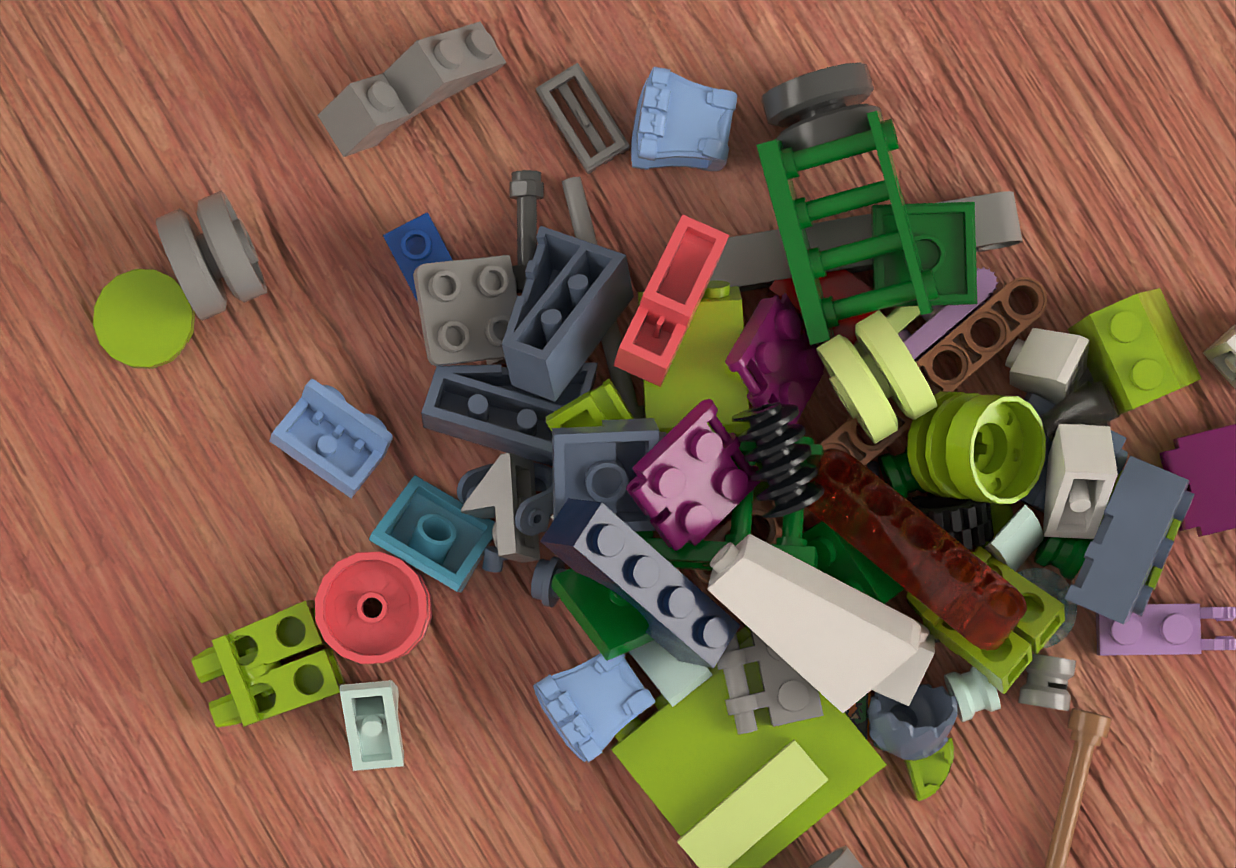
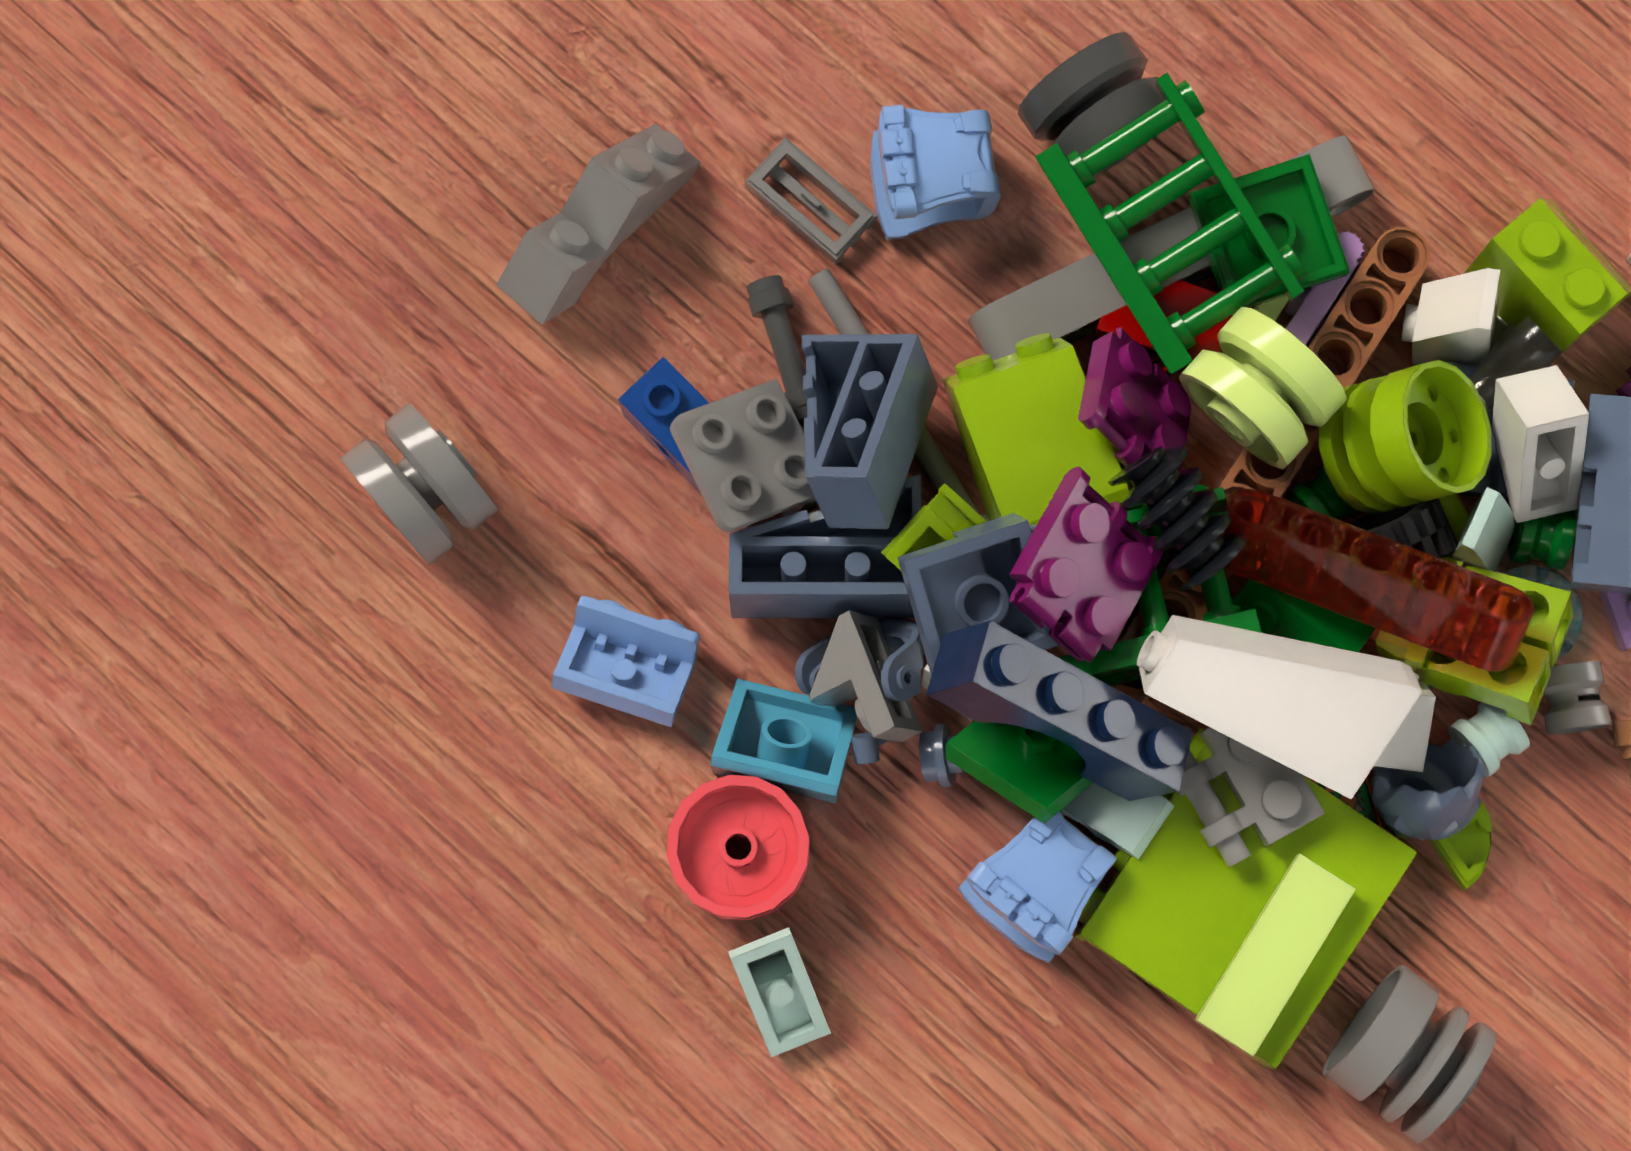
camera: 15 degrees left, 5 degrees down
(143, 318) = (356, 588): lime tile -> none
(254, 668) = (616, 971): lime hips -> none
(670, 300) = (990, 369): coral slope -> none

